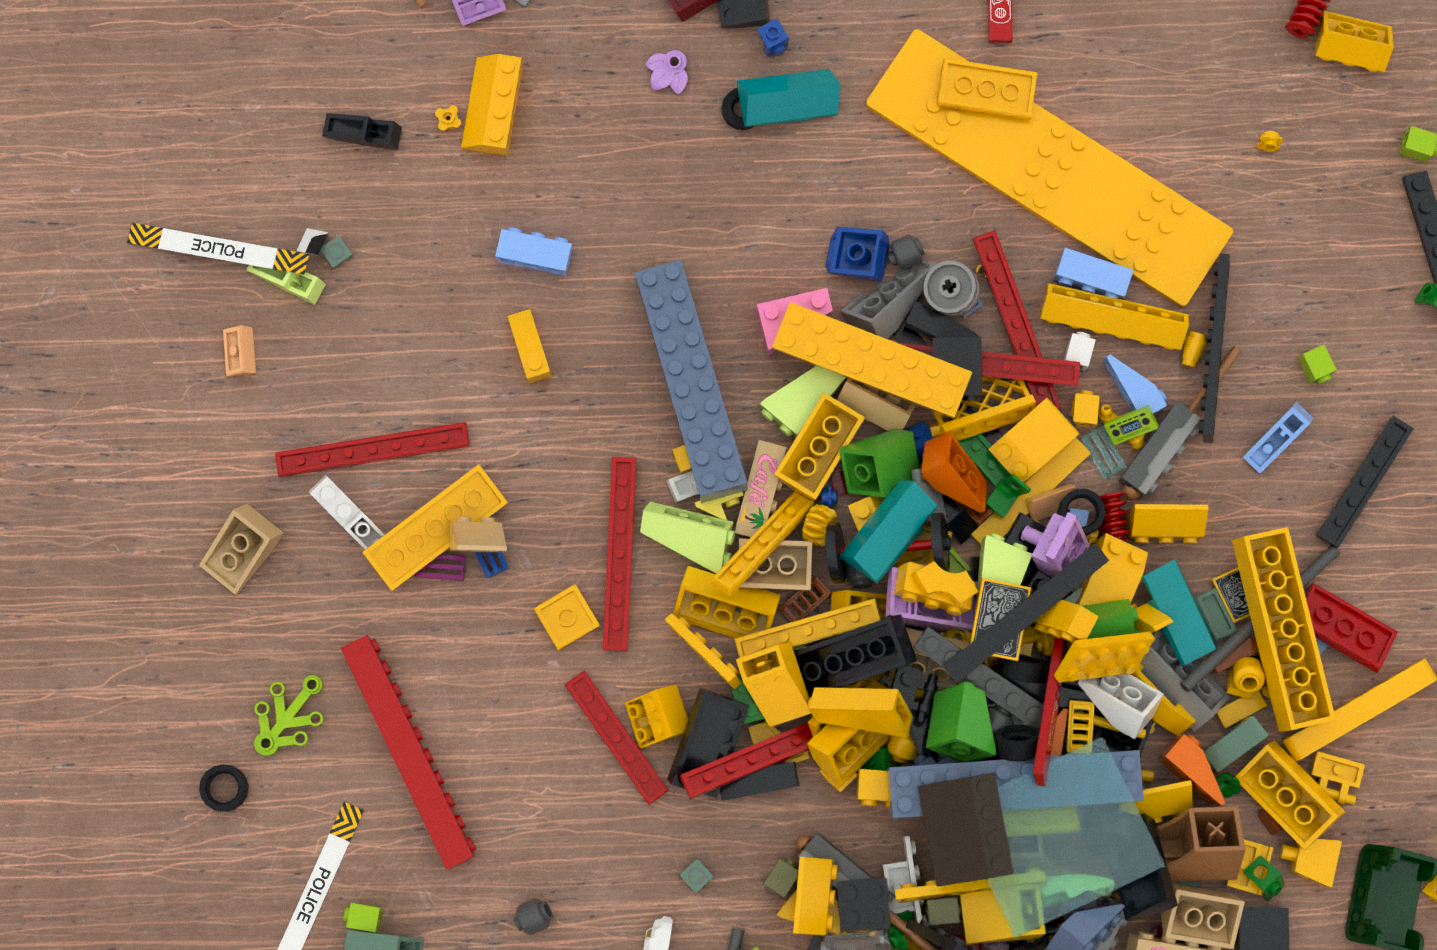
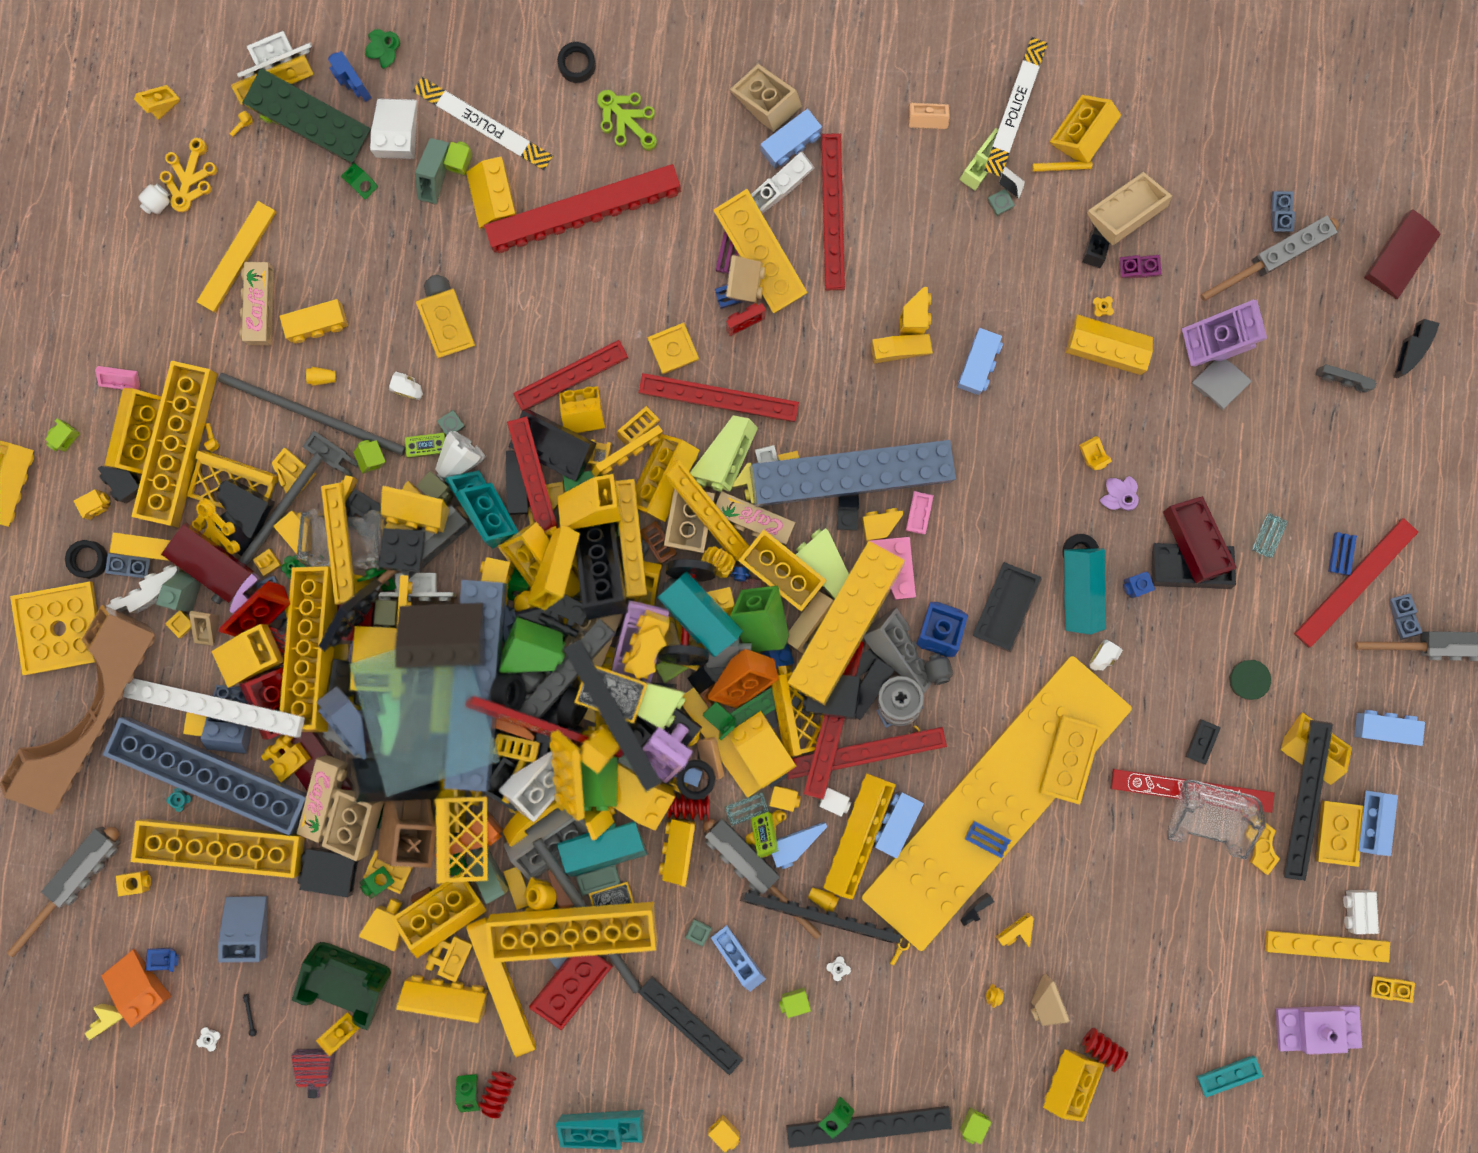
camera: 100 degrees right, 5 degrees up
(234, 164) = (1086, 127): none -> yellow slope
(283, 186) = (1061, 166): none -> yellow bar
(290, 510) = (791, 139): none -> light blue brick
(327, 102) = (1129, 208): none -> tan slope
(393, 81) = (1140, 266): none -> magenta slope
(403, 869) = (491, 191): none -> yellow slope
(488, 332) = (914, 316): none -> yellow slope
(525, 540) = (739, 322): none -> red plate
(574, 899) = (445, 323): none -> yellow tile
(626, 106) = (1094, 454): none -> yellow bracket
(685, 658) = (621, 433): none -> yellow slope
(710, 682) = (600, 453): none -> yellow window
(724, 298) = (919, 513): none -> bright pink plate
(727, 902) = (424, 445): none -> lime tile
(737, 382) = (848, 512): none -> black slope
(738, 858) = (457, 456): none -> white cone
(747, 341) = (879, 526): none -> yellow slope
(795, 815) = (483, 507): none -> teal slope
(820, 183) = (1007, 607): none -> black slope
(860, 66) = (1105, 655): none -> white rock
(1100, 152) = (1003, 847): none -> blue tile
(1171, 173) = (971, 913): none -> black slope
(1186, 121) = (1021, 927): none -> yellow slope
(1202, 796) = (443, 834): none -> yellow fence
(1236, 255) = (899, 950): none -> yellow hand
(1256, 488) = (698, 932): none -> sand green tile
(1268, 80) = (1047, 1003): none -> tan slope
(1269, 328) = (839, 962): none -> white plate
(1386, 774) = (443, 999): none -> yellow slope

